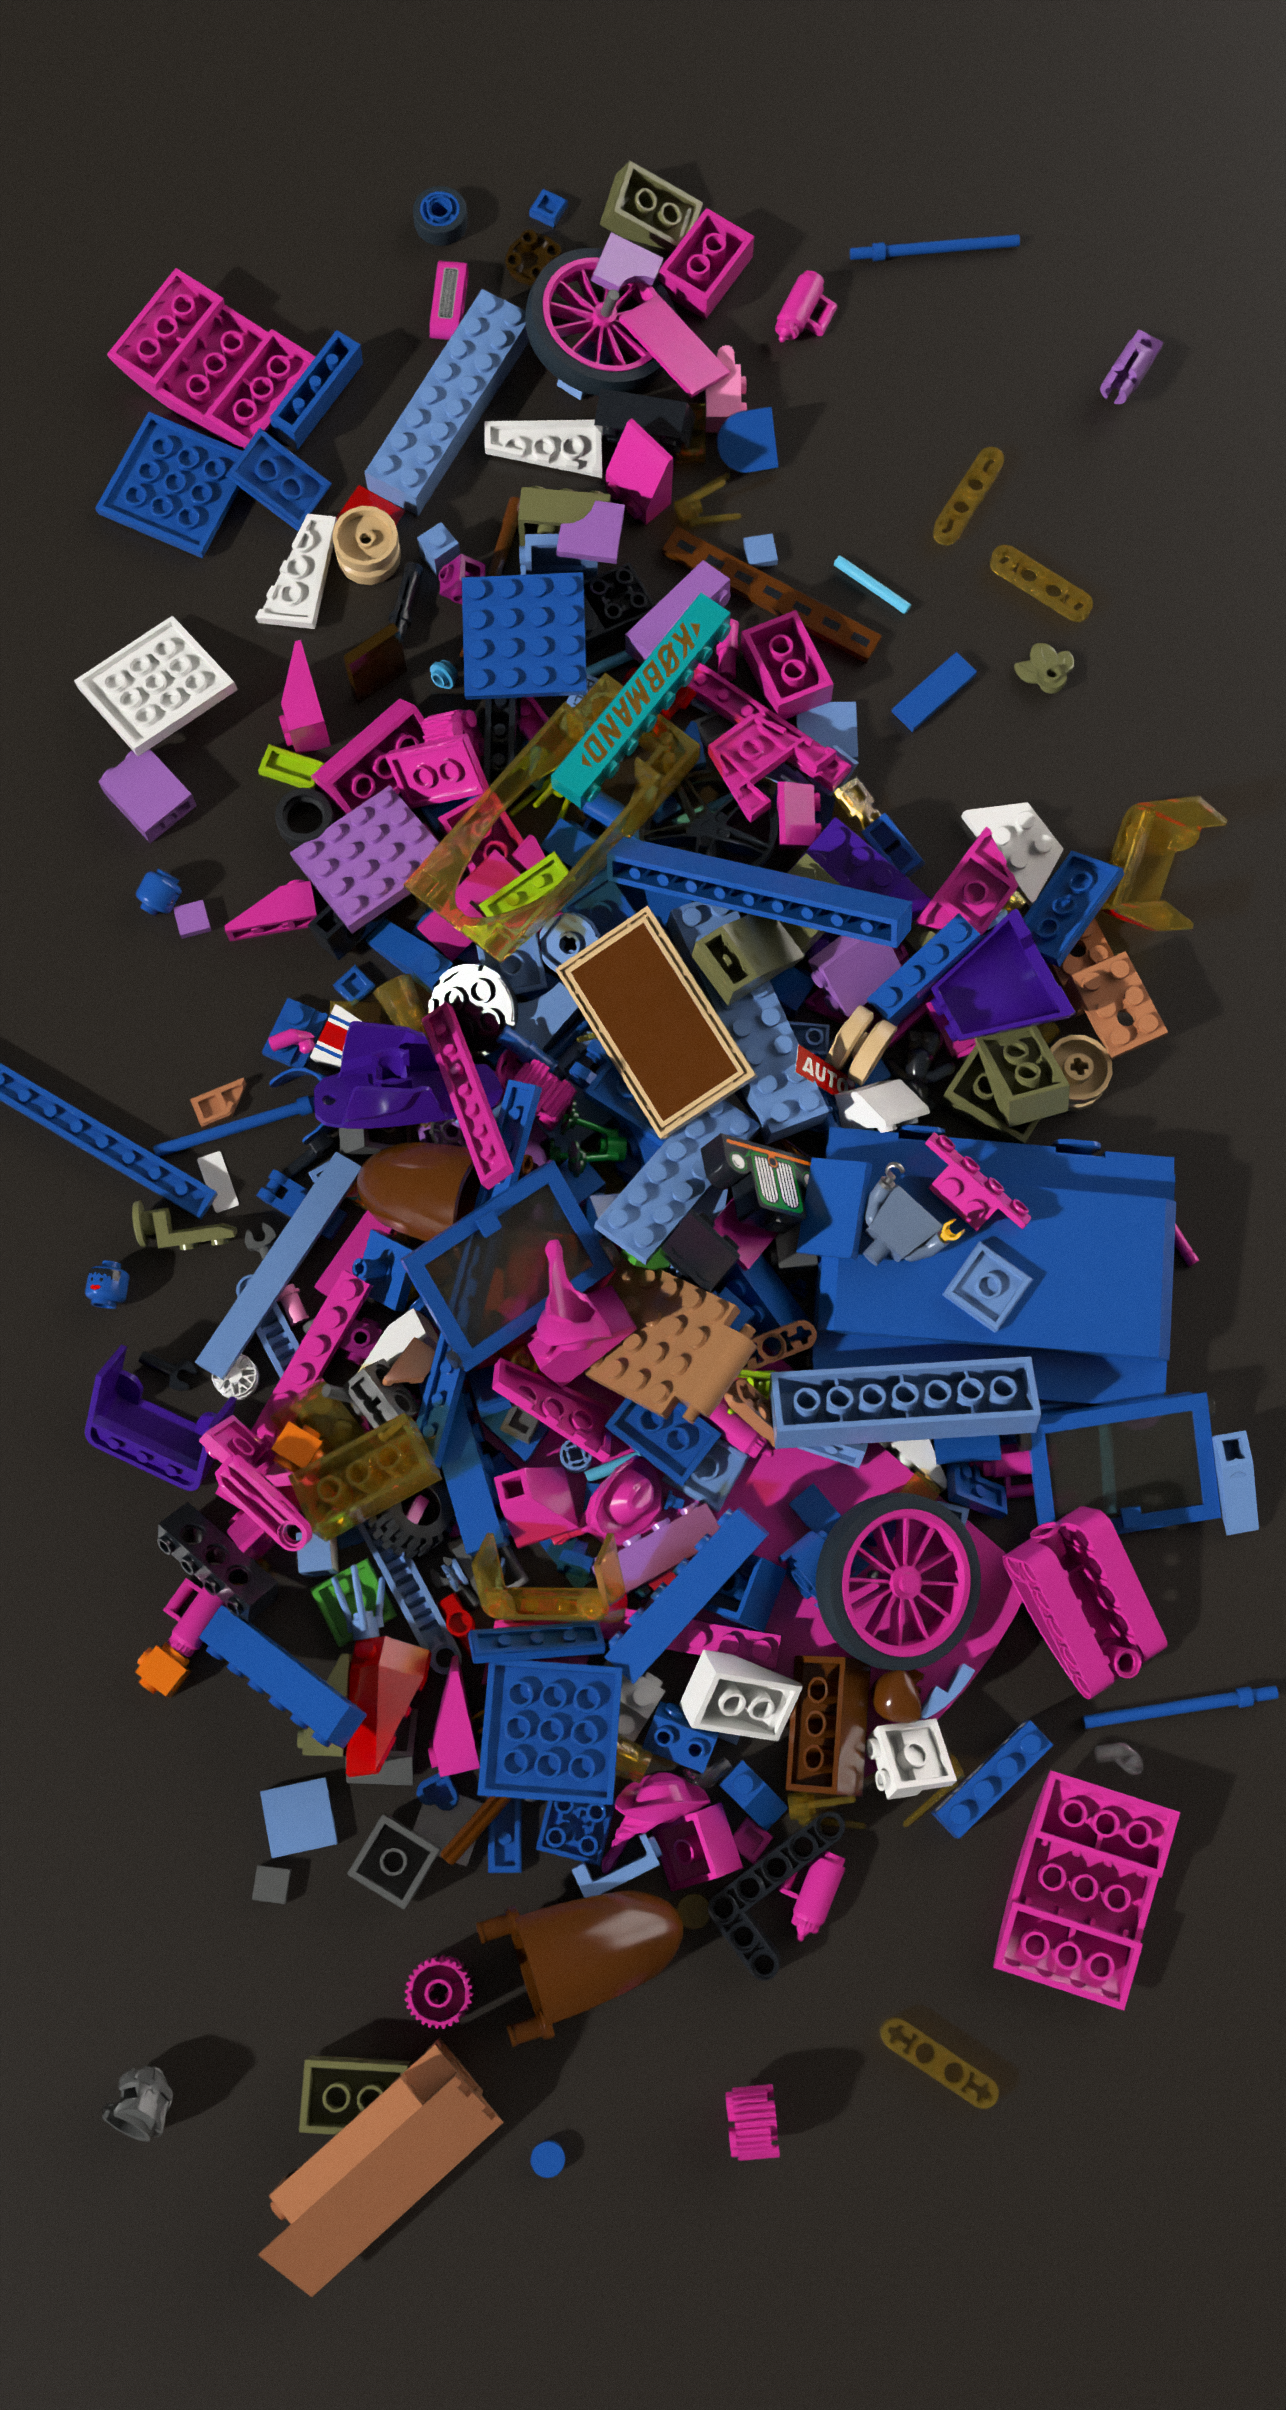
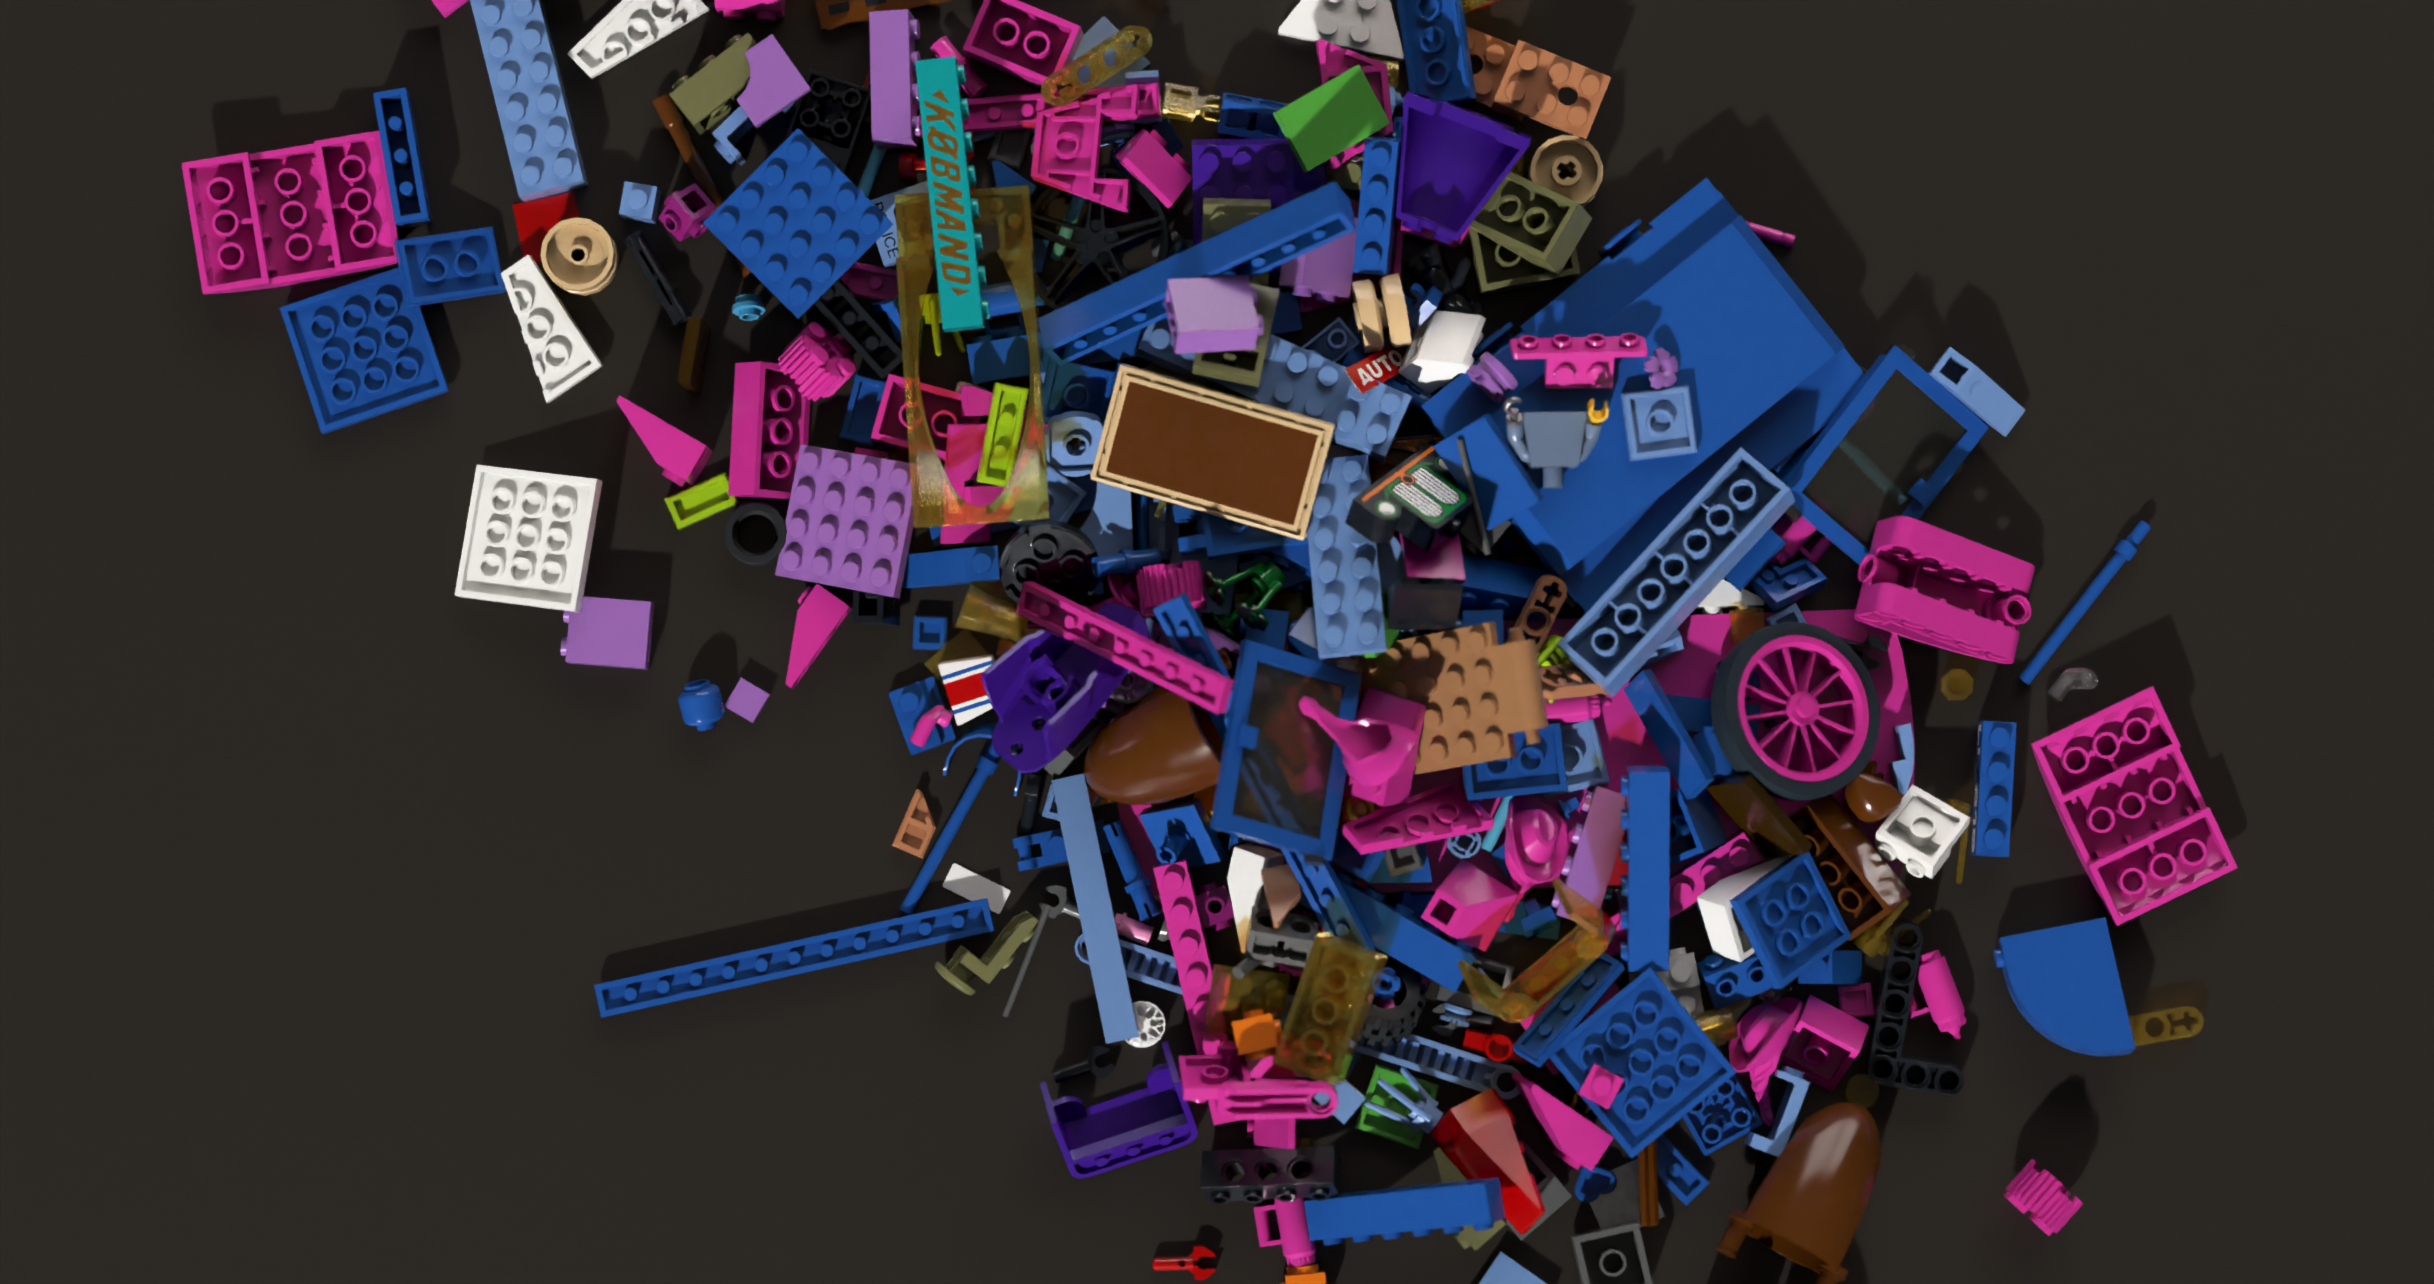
camera: 35 degrees left, 10 degrees up
(103, 1573) = (1186, 1263): none -> red bar
(107, 1285) = (975, 1048): blue head -> none
(194, 1263) = (1026, 961): none -> dark grey axle
(325, 1274) = (1131, 870): none -> blue pin
(424, 1509) = (1393, 984): none -> blue plate
(437, 771) = (833, 399): dark pink tile -> none
(504, 1720) = (1600, 1086): none -> dark pink plate
(742, 920) = (1212, 314): none -> medium lavender brick
(756, 1729) = (1790, 919): none -> blue plate
(791, 1514) = (1668, 734): none -> blue tile
(803, 1631) = (1759, 816): none -> dark brown tile
(810, 1212) = (1472, 492): none -> dark grey axle
(821, 717) = (1098, 69): none -> clear yellow beam
(893, 1068) = (1423, 305): none -> blue tile
(897, 1147) = (1492, 377): none -> medium lavender wheel
(917, 1980) = (2068, 986): none -> blue brick
(948, 882) = (1331, 118): none -> bright green tile
(999, 1588) = (1871, 642): none -> black bar
(1024, 1250) = (1662, 369): none -> medium lavender plant
(1033, 1678) = (1956, 684): none -> clear yellow tile

